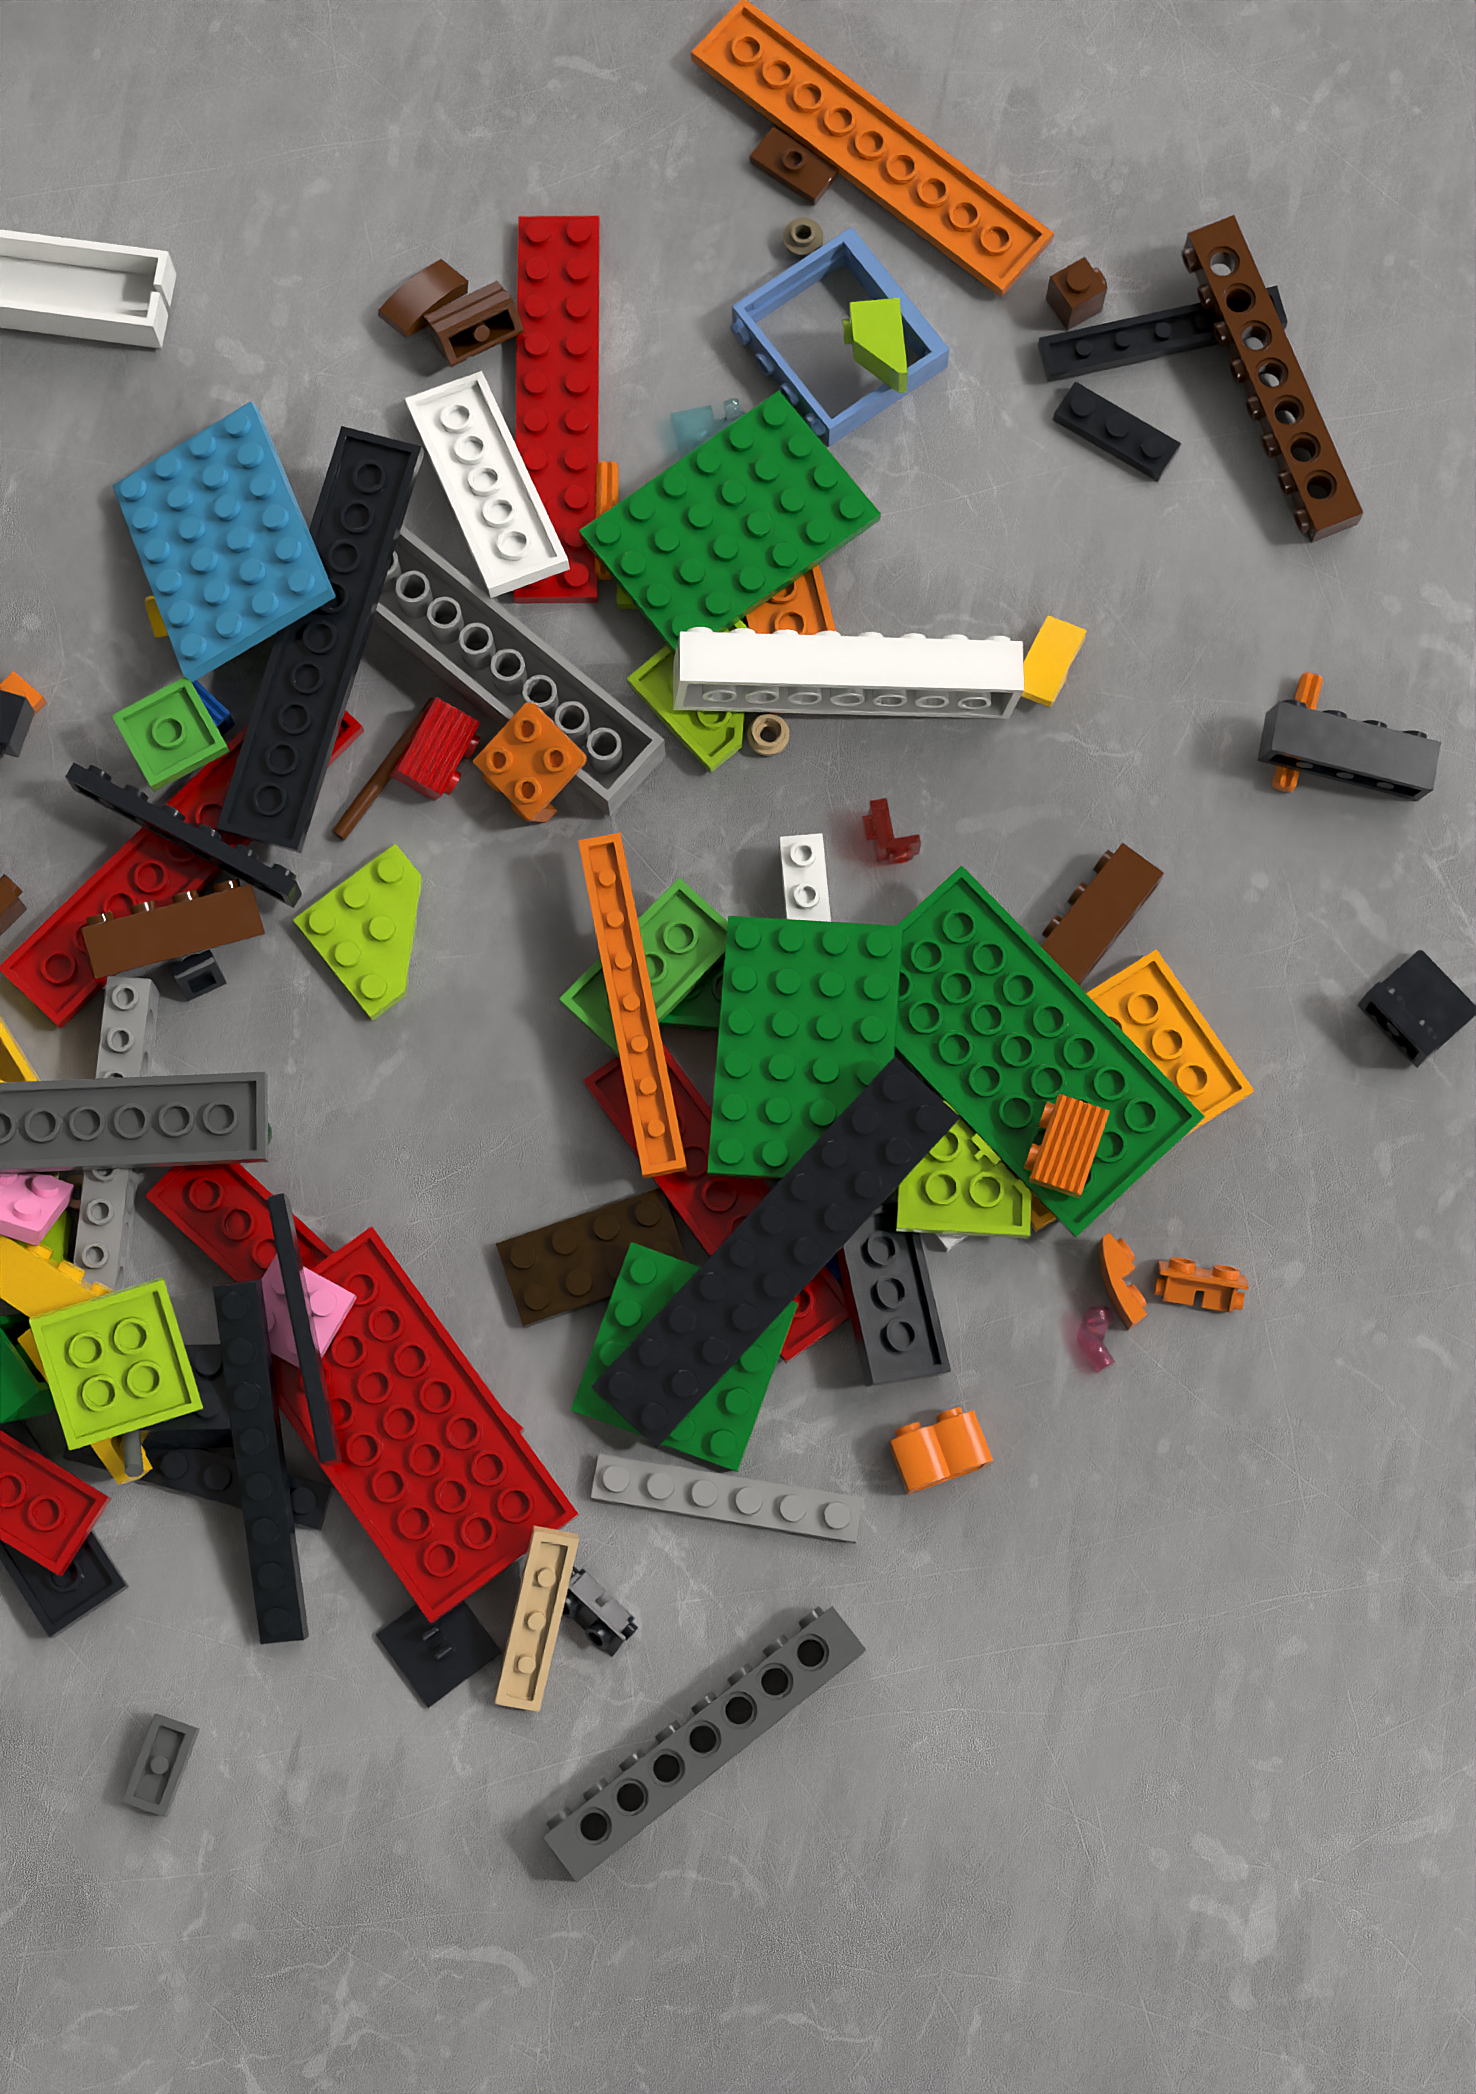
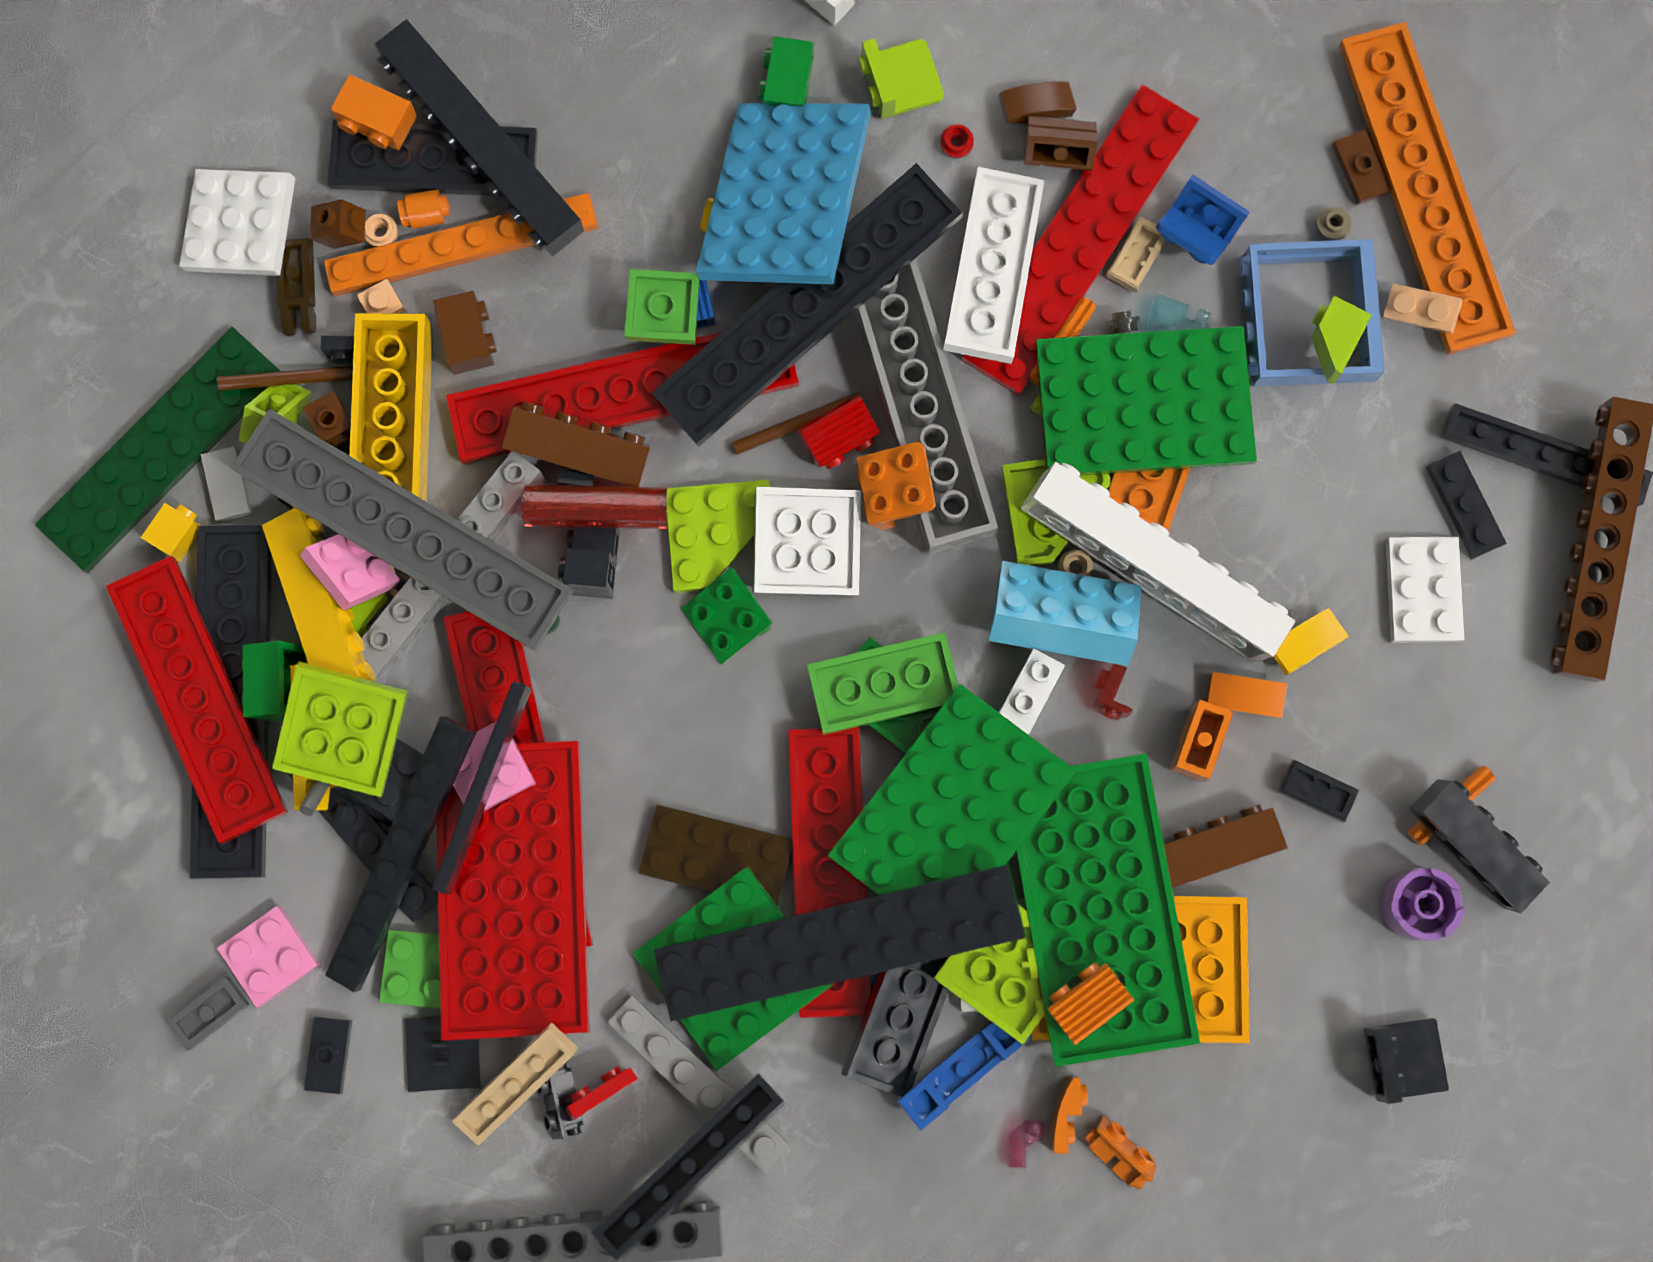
camera: 30 degrees right, 5 degrees up
(145, 421) = (789, 72): none -> green brick
(186, 1666) = (268, 956): none -> bright pink plate
(199, 841) = (635, 395): black plate -> none
(234, 978) = (594, 506): none -> clear red brick
(263, 1037) = (590, 561): none -> black brick
(264, 358) = (900, 77): none -> lime bracket
(318, 1725) = (328, 1055): none -> black plate
(352, 1578) = (411, 970): none -> bright green plate
(365, 376) = (960, 132): none -> red plate
(443, 1006) = (727, 615): none -> green hinge
(476, 879) = (806, 541): none -> white plate
(622, 1586) = (612, 1083): none -> red plate
(625, 387) = (1136, 255): none -> tan plate
(632, 1006) = (852, 703): orange plate -> none
(655, 462) = (1122, 322): none -> clear smoke plate
(669, 312) = (1202, 221): none -> blue bracket
(773, 1577) = (688, 1168): none -> black brick
(788, 783) = (1065, 613): none -> medium azure brick
(940, 1450) = (863, 1149): orange brick -> none
(946, 265) = (1422, 308): none -> light nougat plate
(985, 1310) = (957, 1074): none -> blue slope
(1008, 824) = (1201, 741): none -> orange brick
(1024, 751) = (1247, 694): none -> orange slope
(1076, 293) = (1504, 387): reddish brown brick -> none
(1131, 539) = (1424, 589): none -> white plate
(1157, 801) = (1318, 791): none -> black plate
(1352, 831) = (1441, 896): none -> medium lavender brick

